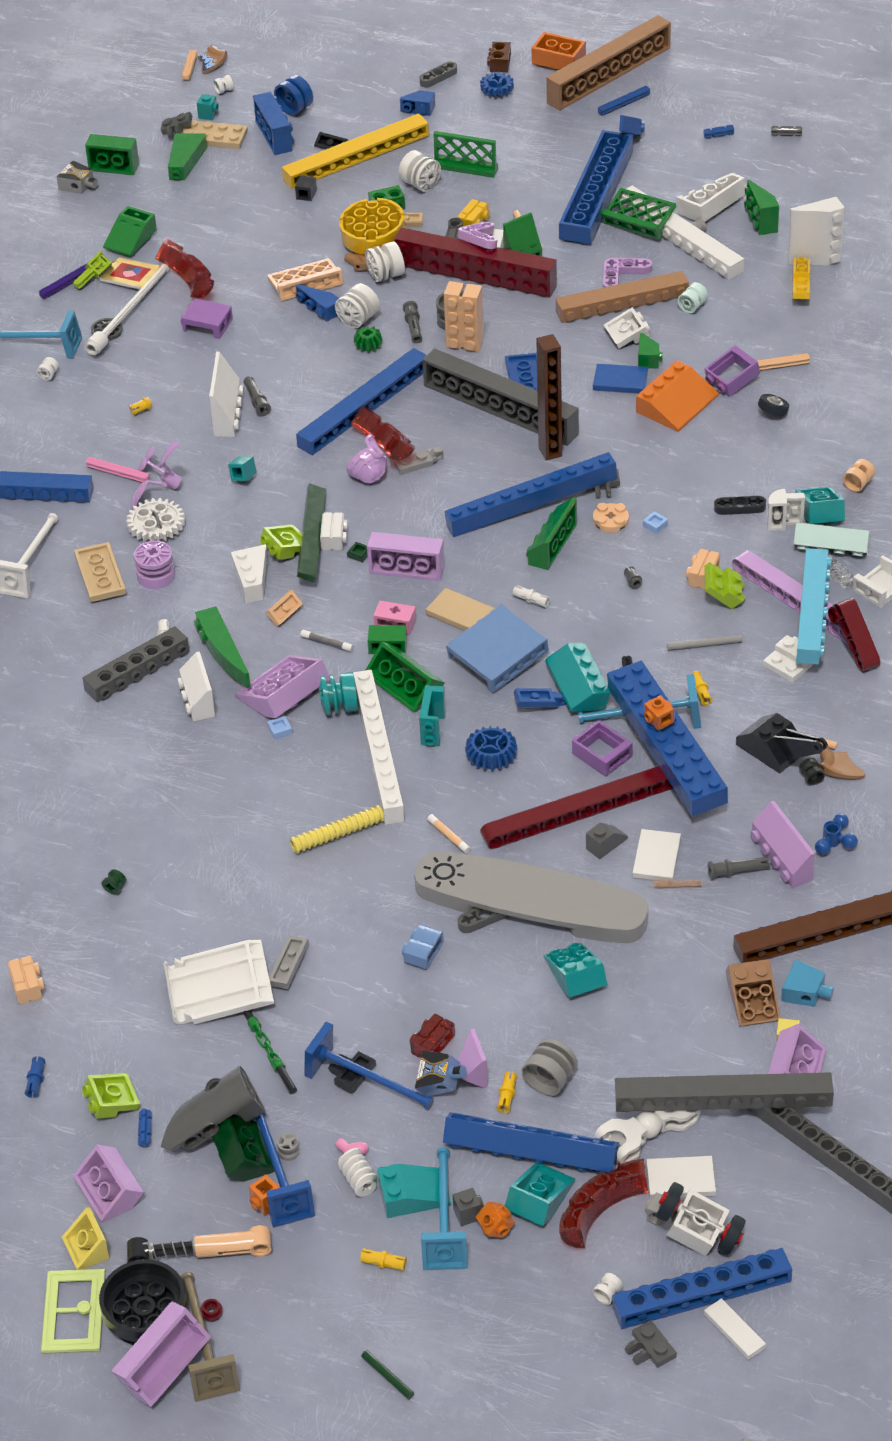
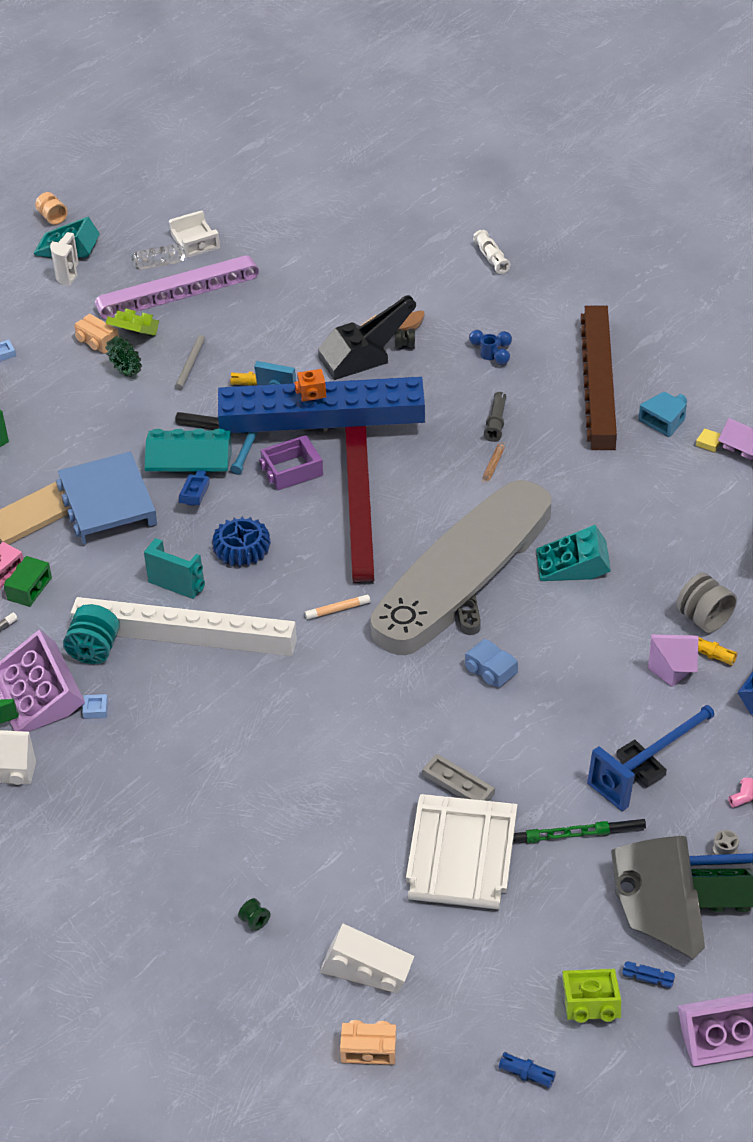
camera: 70 degrees left, 0 degrees up
(91, 954) = (366, 960): none -> white wedge
(337, 829) = (284, 692): light yellow piece -> none
(401, 675) = (98, 579): green slope -> none
(433, 1036) = (621, 687): clear red brick -> none
(438, 1073) = (682, 686): torso -> none
(531, 596) = (41, 459): white pin -> none
(604, 839) = (415, 494): dark grey slope -> none
(634, 579) = (70, 383): dark grey pin -> none
(656, 855) = (450, 466): white tile -> none
(672, 594) = (123, 356): none -> clear green gear
(723, 507) = (25, 297): black beam -> none
(753, 992) = (658, 446): medium nougat slope -> none
(783, 660) = (251, 313): white plate -> none
(783, 845) = (494, 371): lavender slope -> none
(812, 606) = (210, 272): medium azure brick -> none
(832, 538) = (118, 246): light aqua slope -> none
(856, 633) = (247, 250): dark red beam -> none

